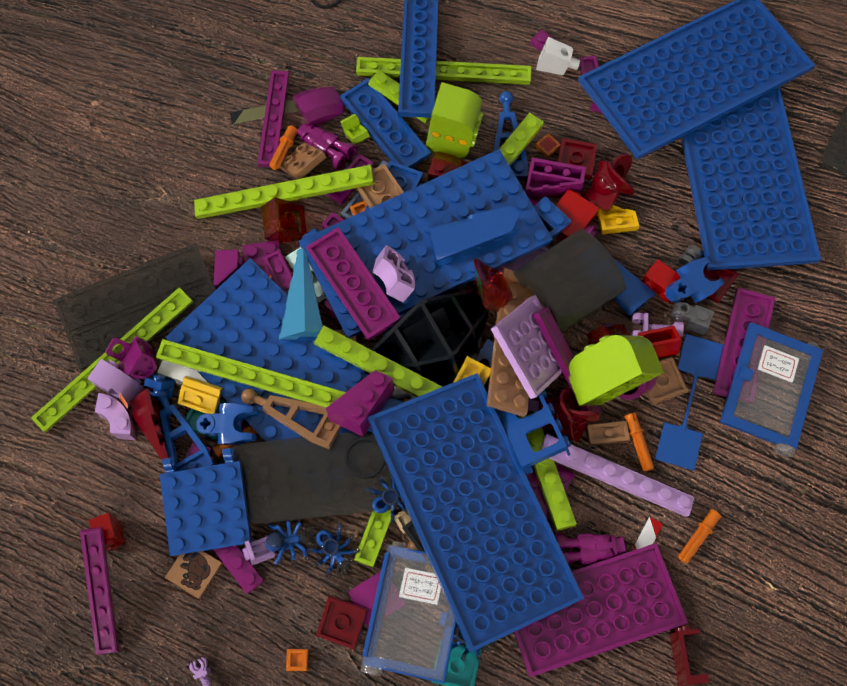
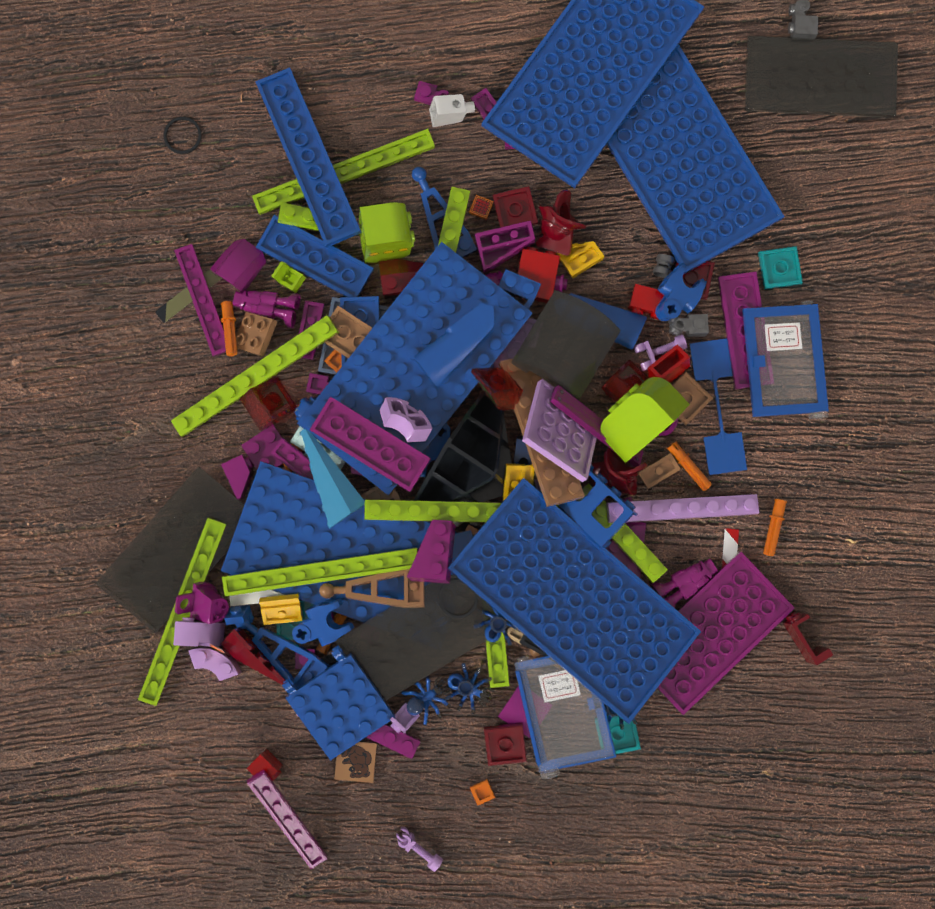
camera: 25 degrees left, 15 degrees up
(799, 306) = (780, 267): none -> teal tile

